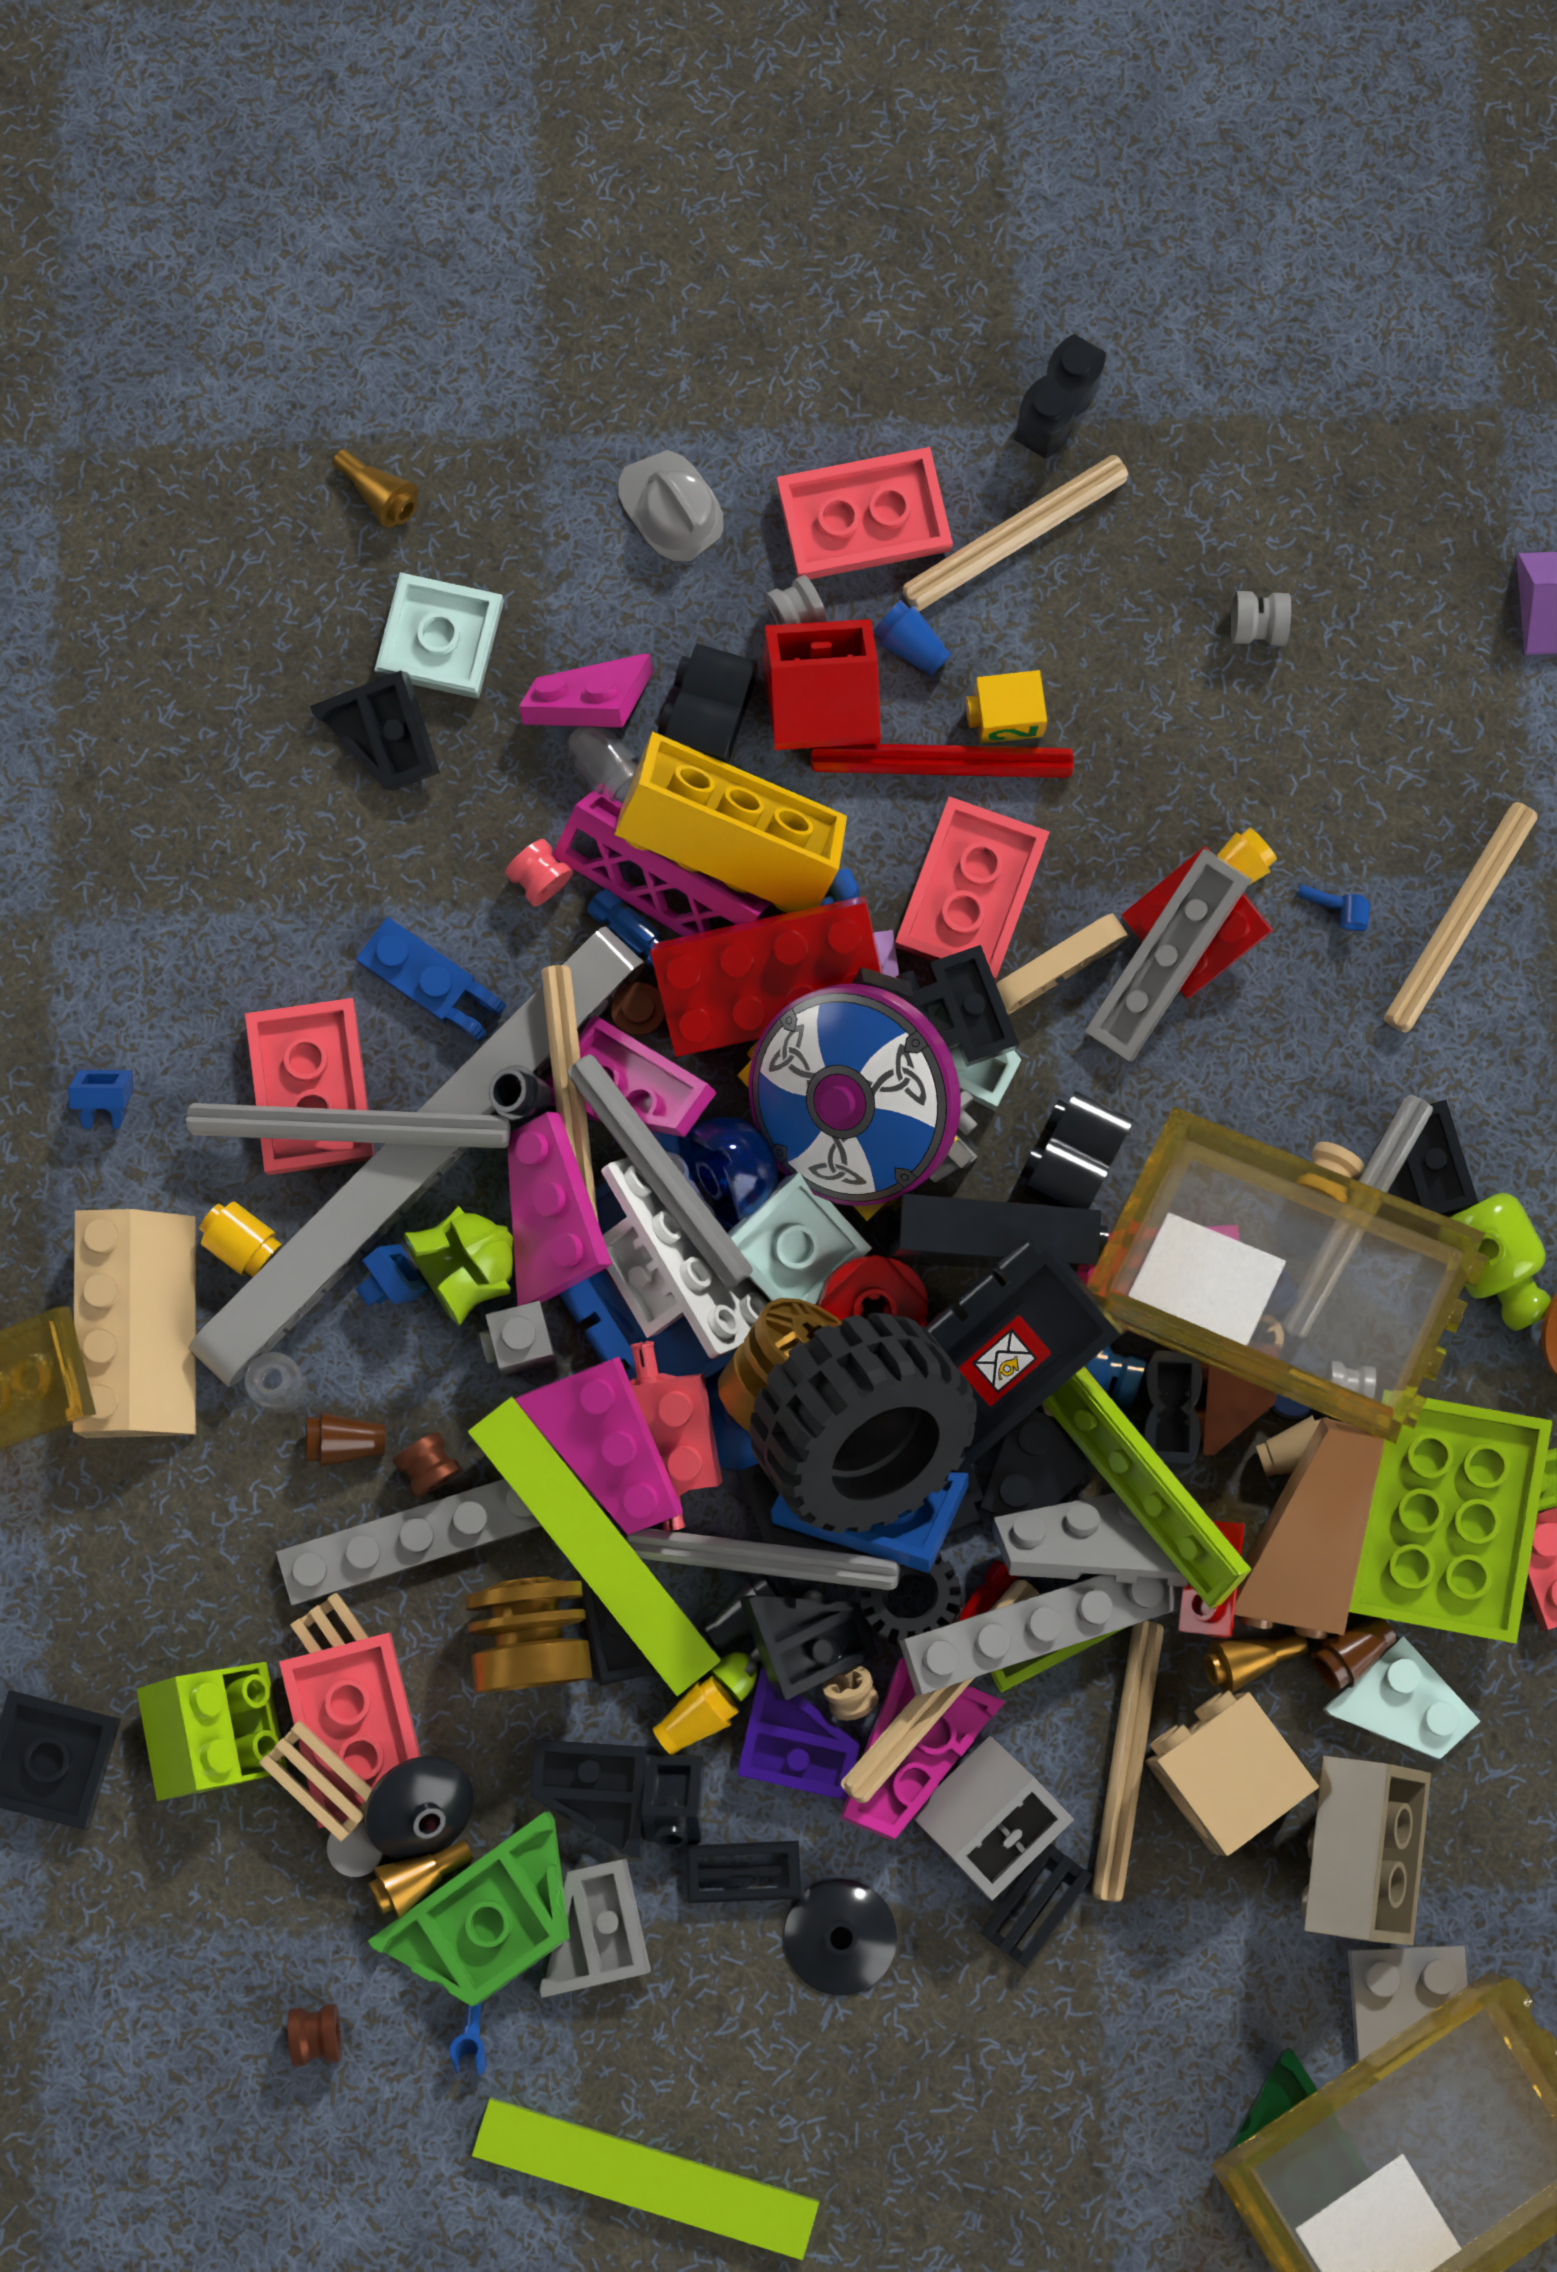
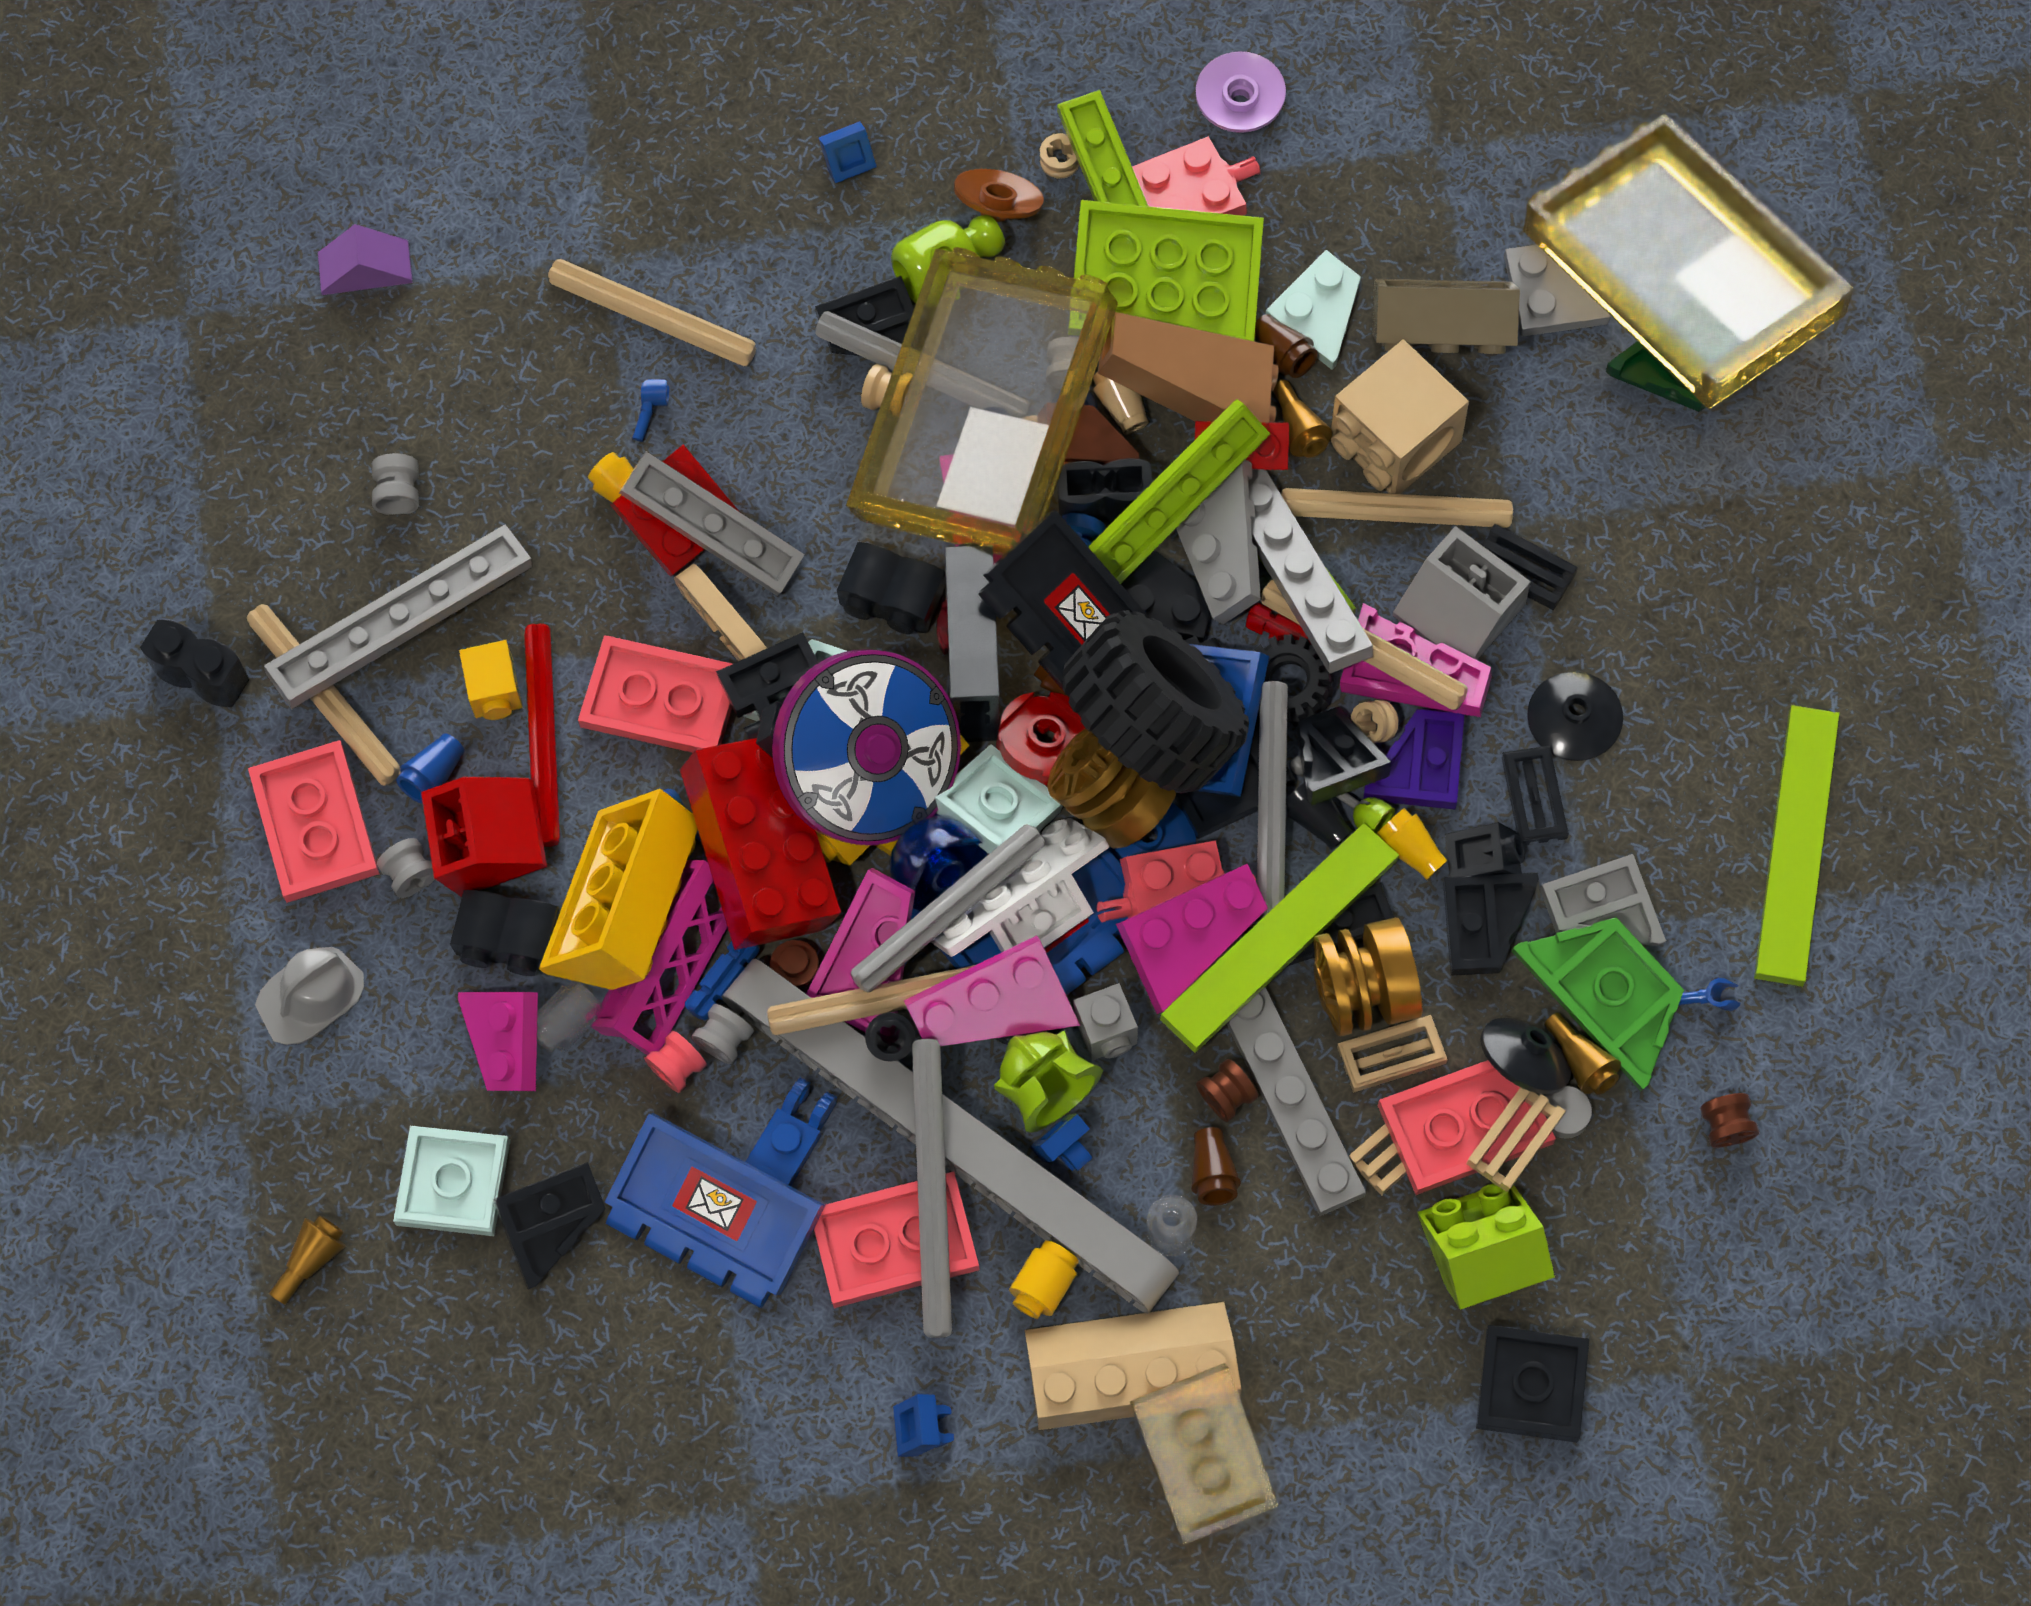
camera: 90 degrees left, 10 degrees down
(369, 899) = (713, 1205): none -> blue hinge
(460, 1705) = (1397, 1071): none -> tan tile
(563, 924) = (722, 1033): none -> light grey wheel
(1094, 612) = (397, 616): none -> light grey plate

